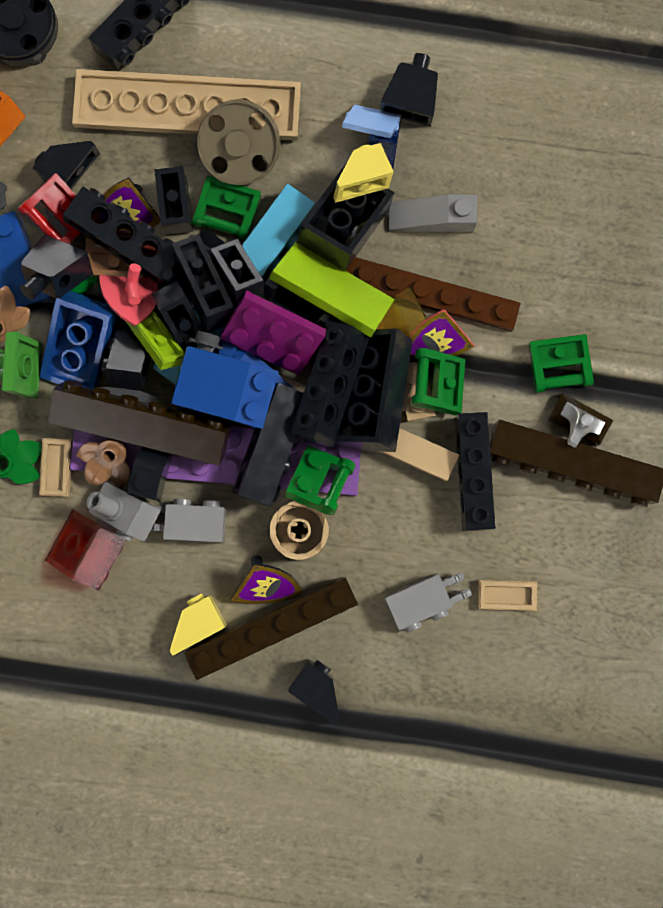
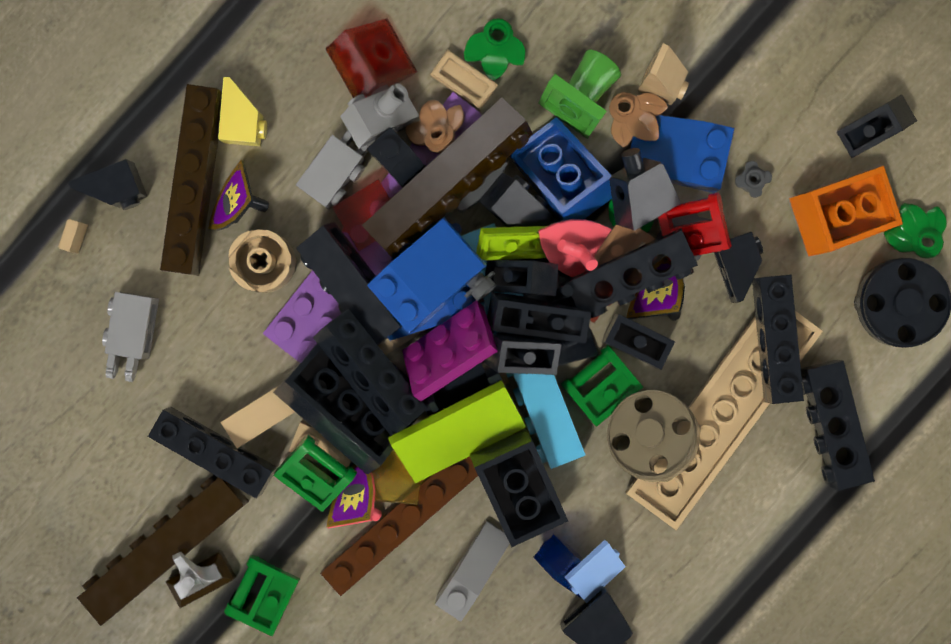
camera: 125 degrees right, 5 degrees up
(103, 94) = (777, 339): none -> black brick
(210, 478) = (358, 209): none -> clear red piece
(311, 475) = (301, 302): green plate -> none
(364, 173) = (544, 532): light yellow slope -> none
(378, 696) = (73, 236): none -> tan tile
(507, 595) = (88, 409): tan tile -> none

